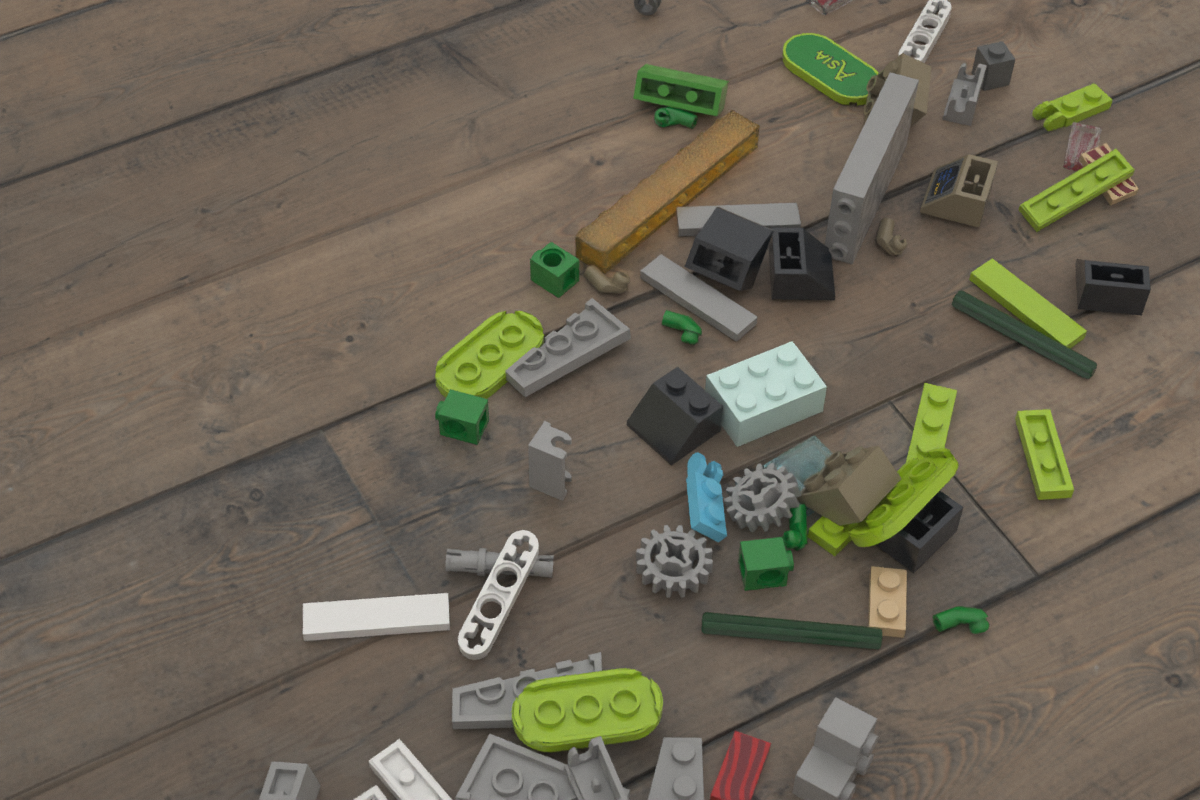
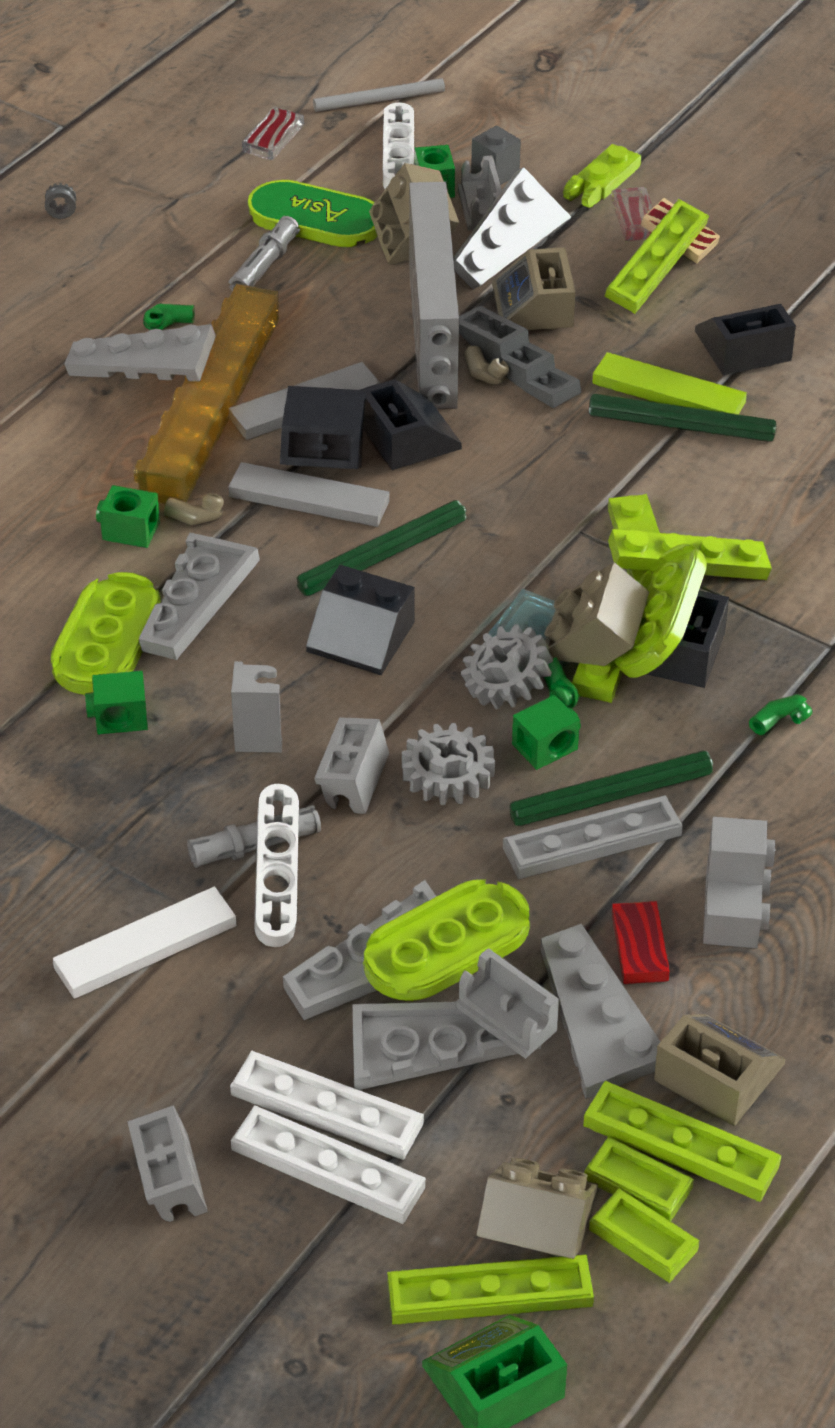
camera: 25 degrees left, 5 degrees down
(603, 533) = (353, 762): none -> light grey hinge
(641, 145) = (155, 352): none -> light grey wing
(680, 90) = (161, 282): bright green brick -> none
(683, 323) = (311, 525): green arm -> none
(705, 497) = (443, 687): medium azure hinge -> none
(710, 362) = (384, 545): none -> dark green axle
(754, 666) = (592, 837): none -> light grey tile
(766, 393) = (450, 561): light aqua brick -> none
(781, 87) = (271, 247): none -> light grey pin
(887, 600) = (693, 722): tan plate -> none
(923, 245) = (528, 364): none -> dark grey slope
(941, 58) = (439, 159): none -> green brick
(973, 459) = (724, 556): none -> lime plate
(974, 127) = (508, 229): none -> wing
(1044, 454) = (772, 525): lime plate -> none

